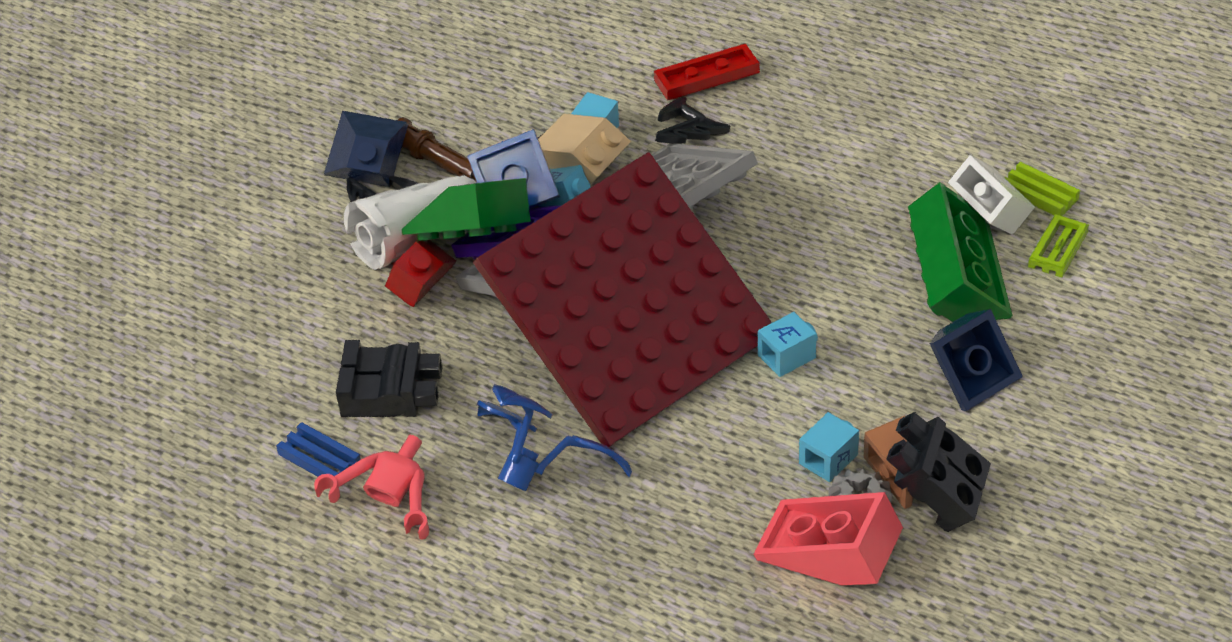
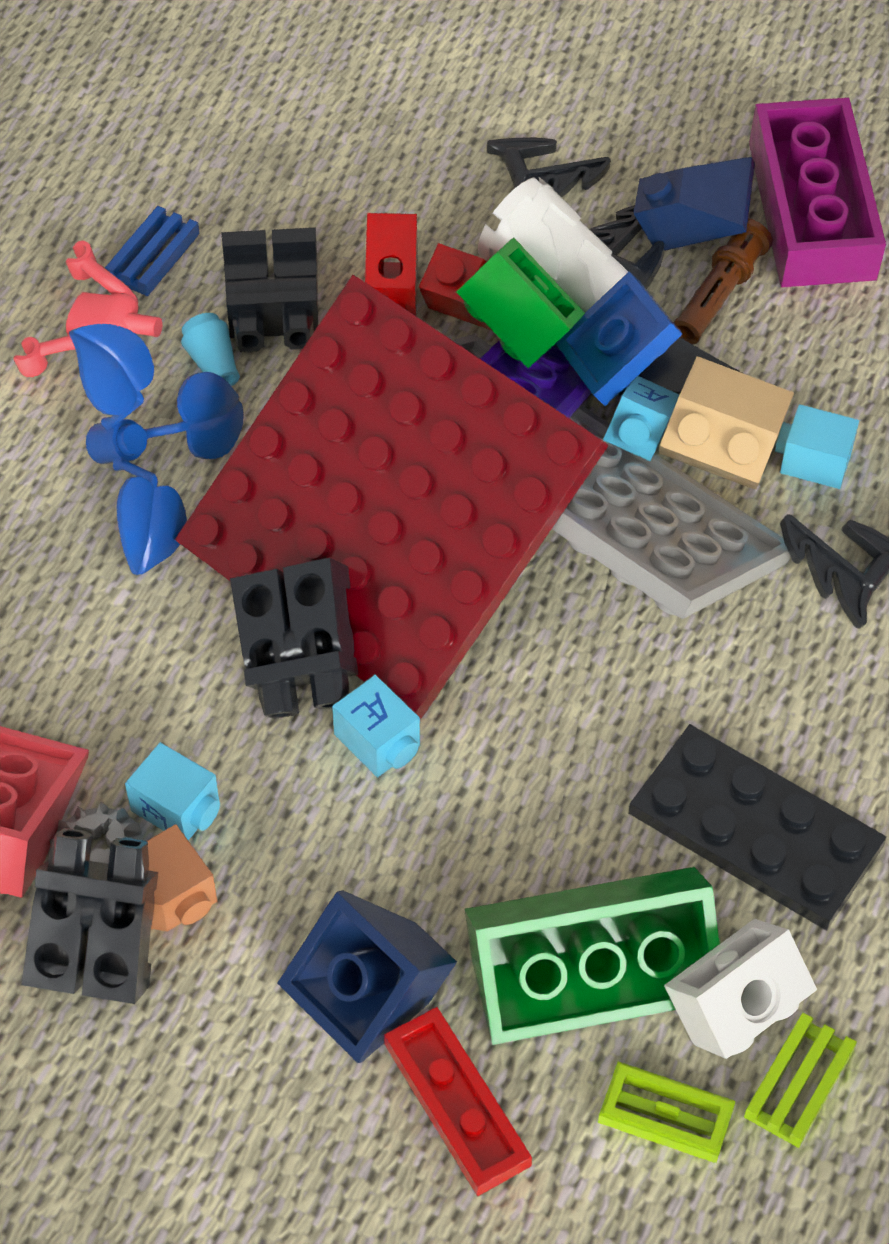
camera: 80 degrees right, 10 degrees up
(309, 235) = (560, 177): none -> black piece
(375, 87) = (816, 192): none -> magenta brick
(400, 305) = (393, 237): none -> red torso
(437, 417) = (210, 346): none -> medium azure cone
(720, 365) = (296, 634): none -> black hips
(870, 188) = (757, 826): none -> black plate
(1056, 327) = (457, 1101): none -> red plate

